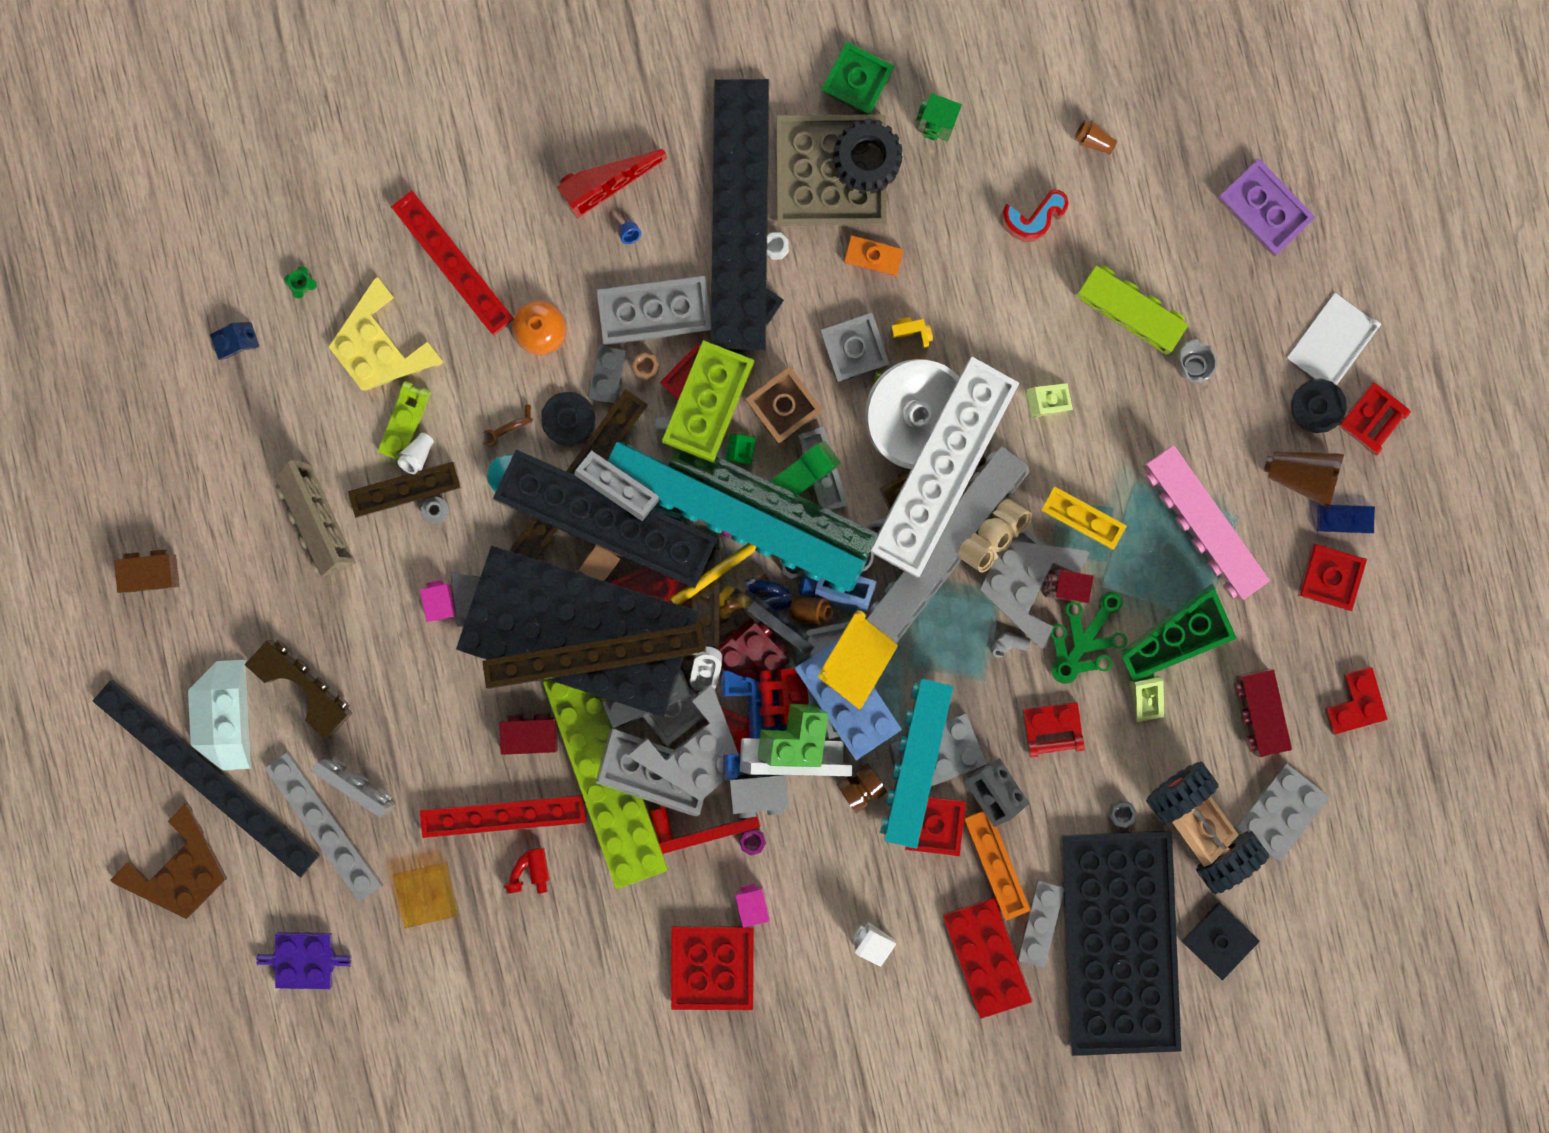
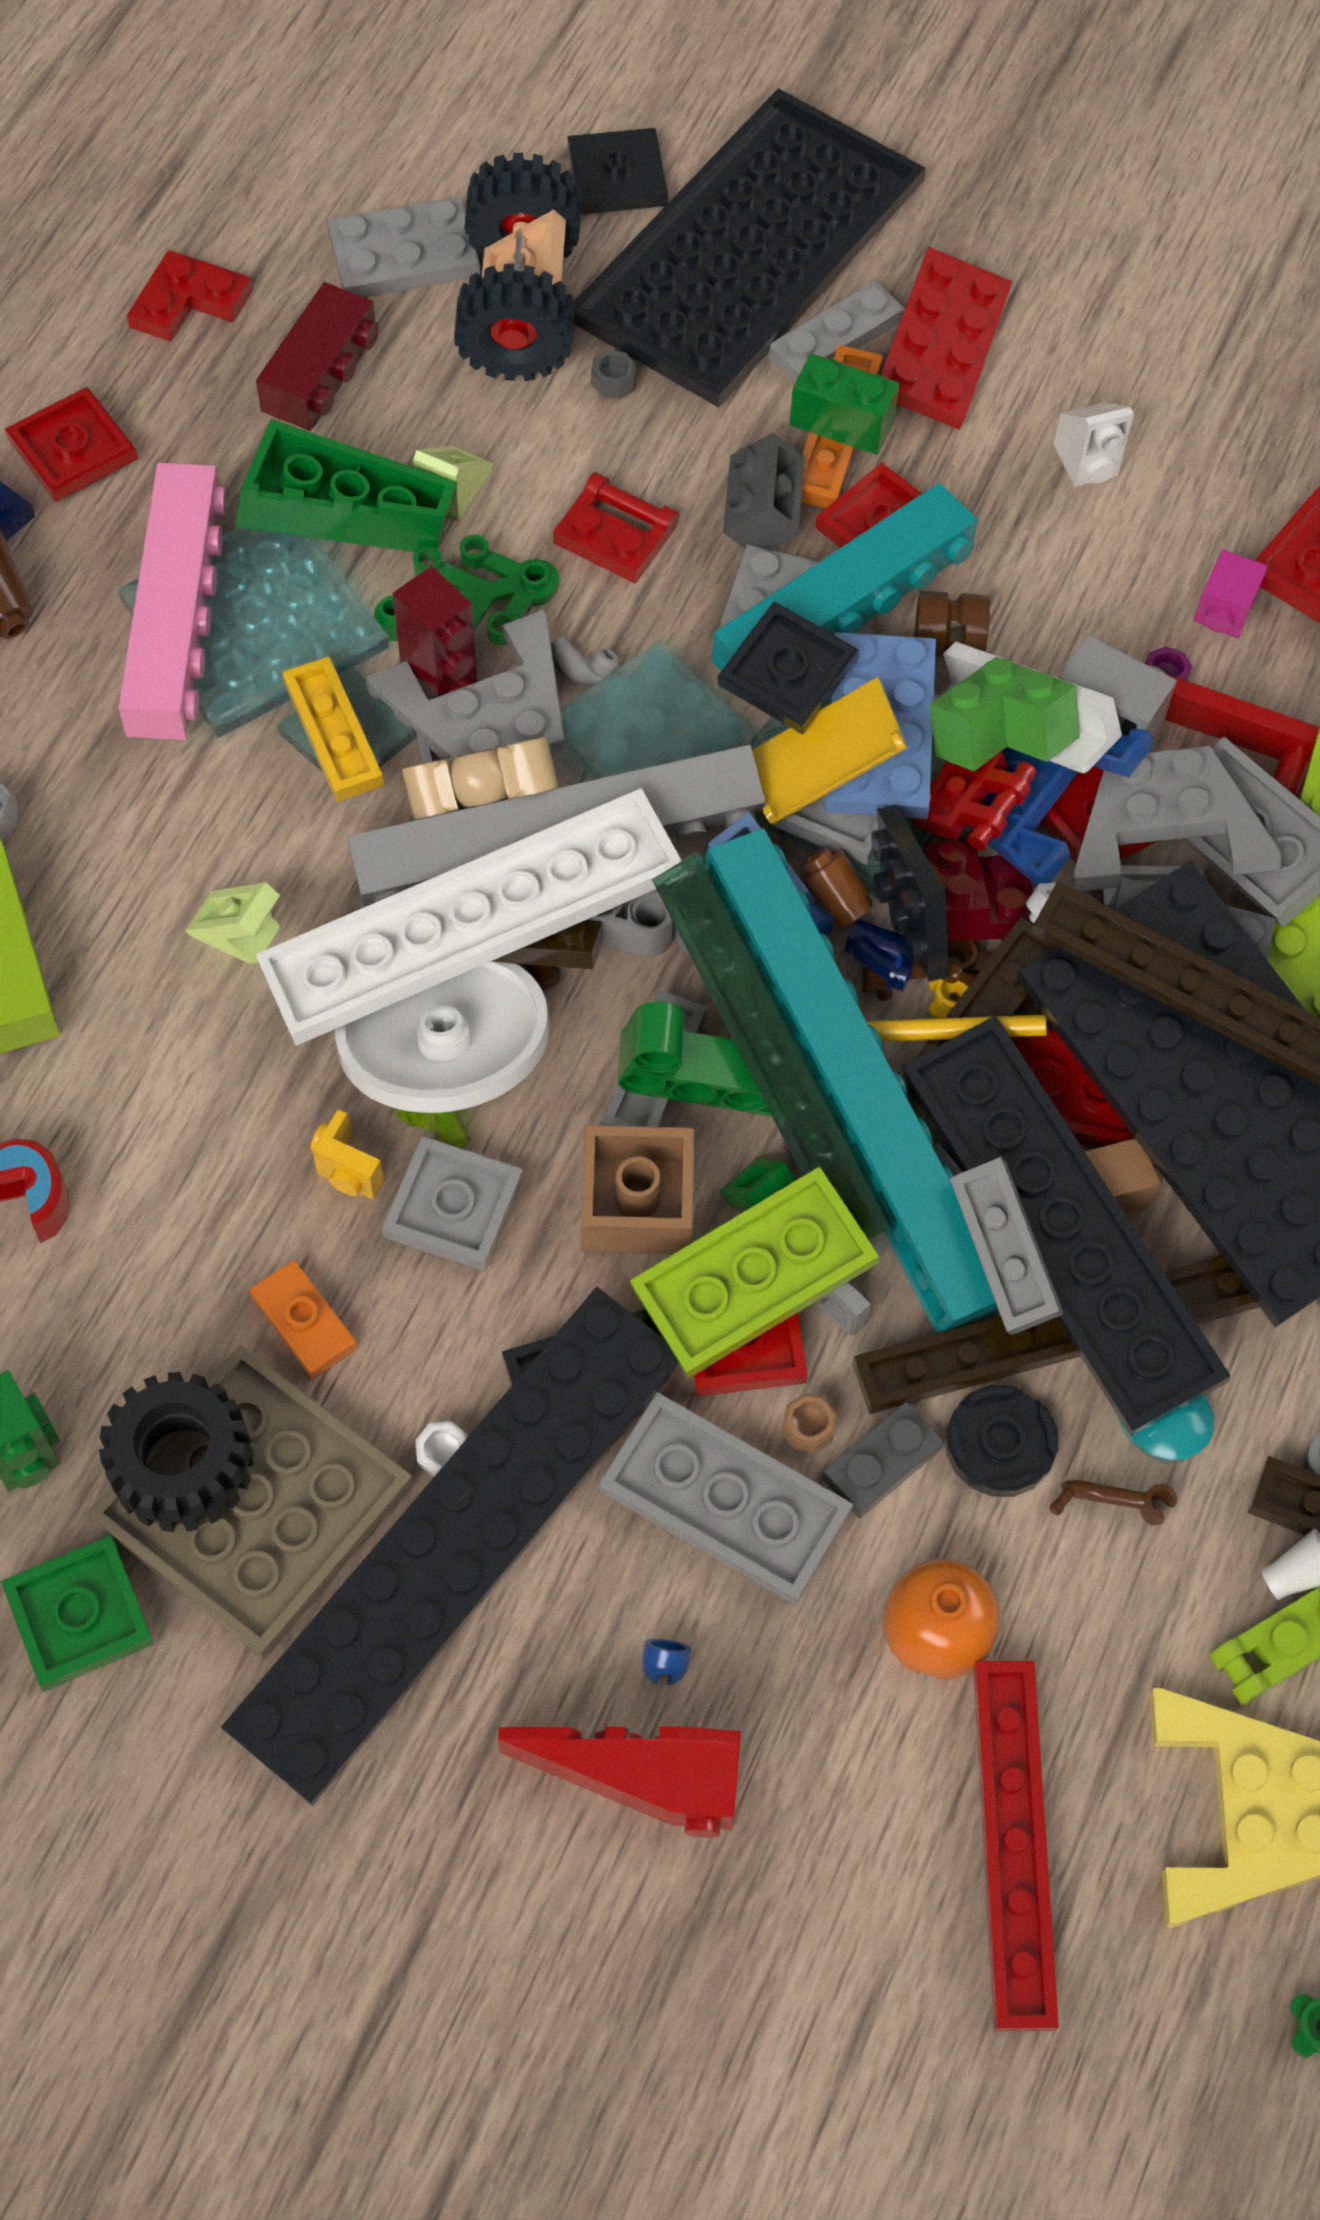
camera: 145 degrees left, 25 degrees down
(905, 689) = (788, 667): none -> black plate
(996, 867) = (844, 403): none -> green brick

